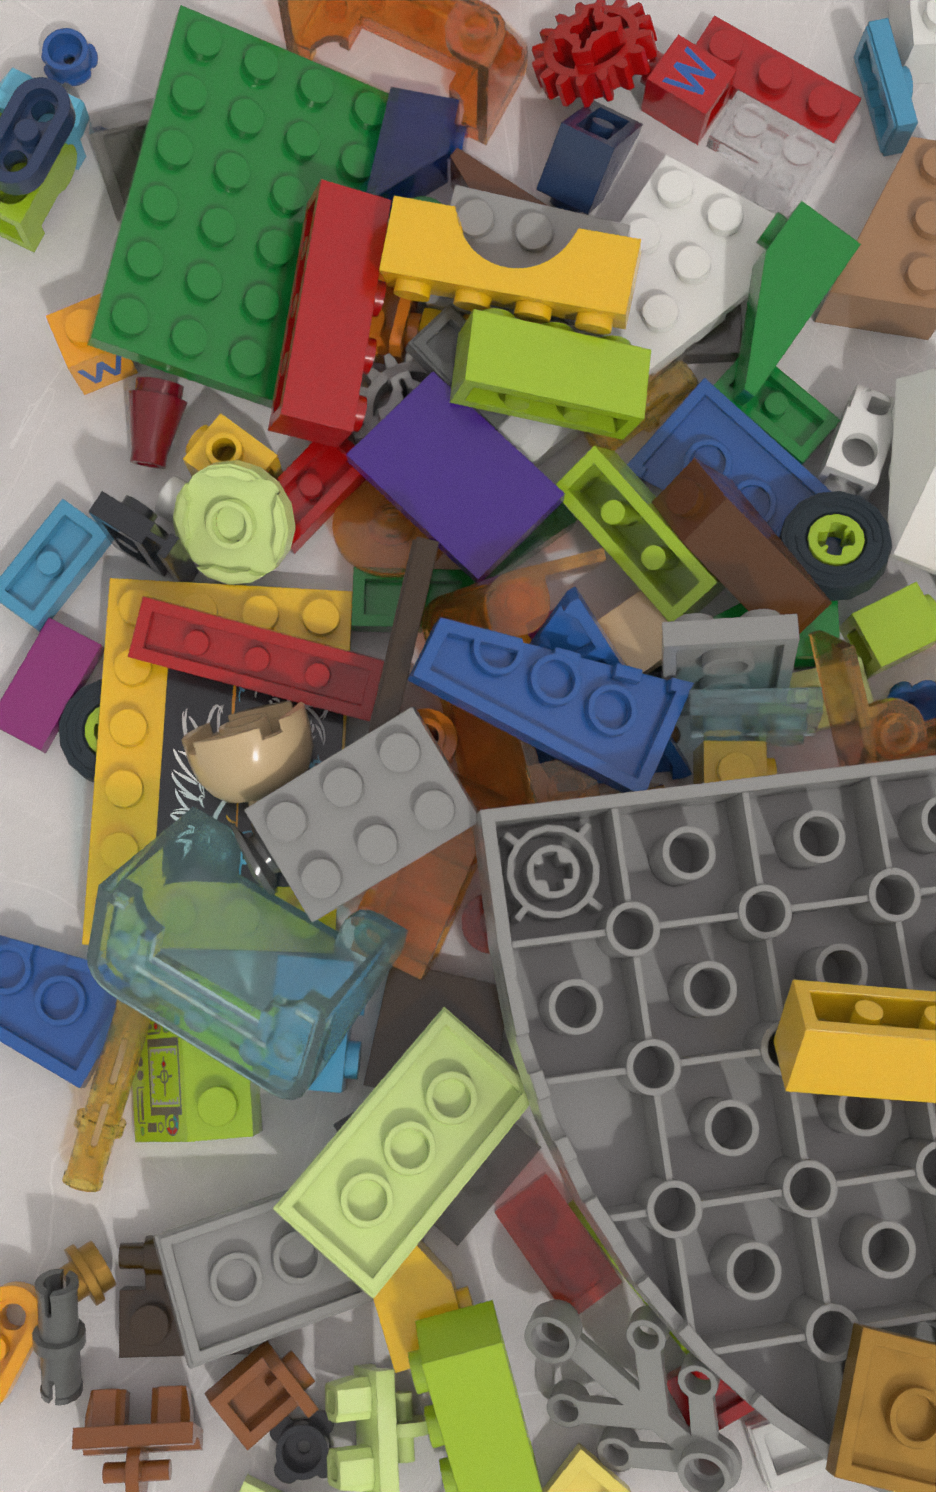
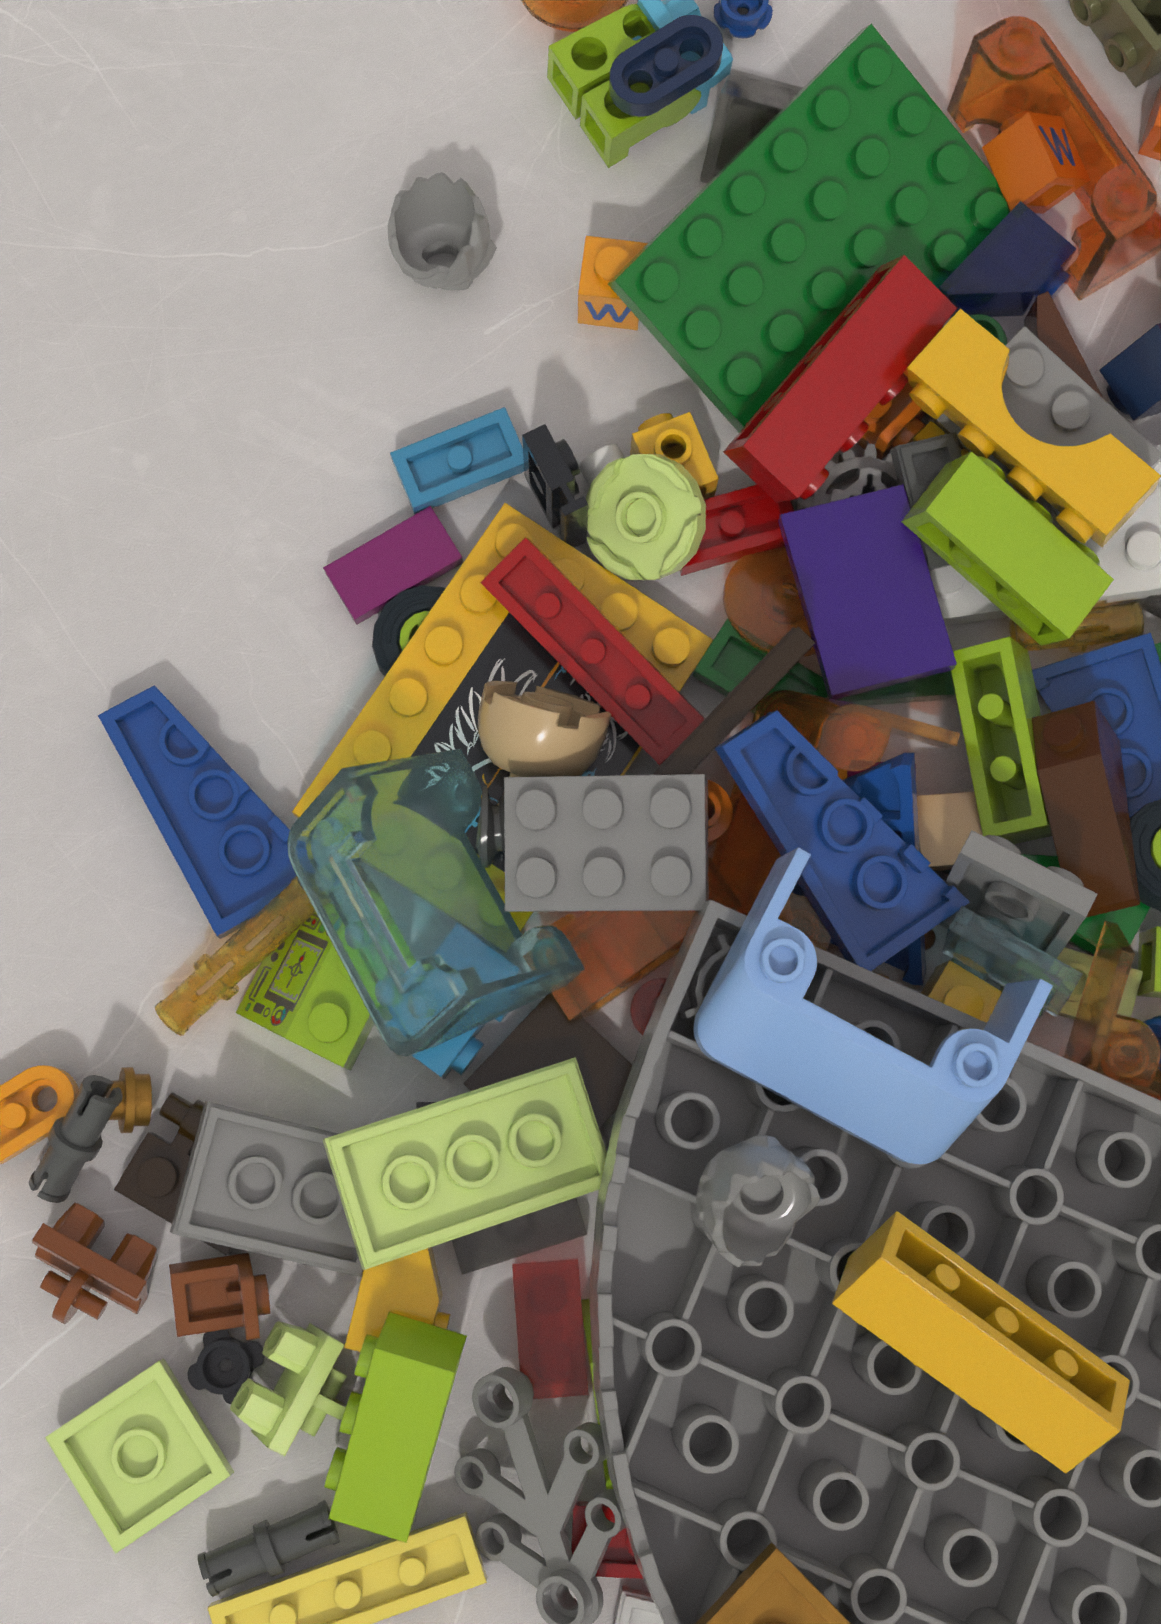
camera: 30 degrees right, 0 degrees up
(154, 419) = (628, 381): dark red cone -> none
(383, 48) = (1035, 161): none -> orange brick
(599, 894) = (812, 1058): none -> light blue windscreen
(668, 1044) = (754, 1199): none -> light grey hair

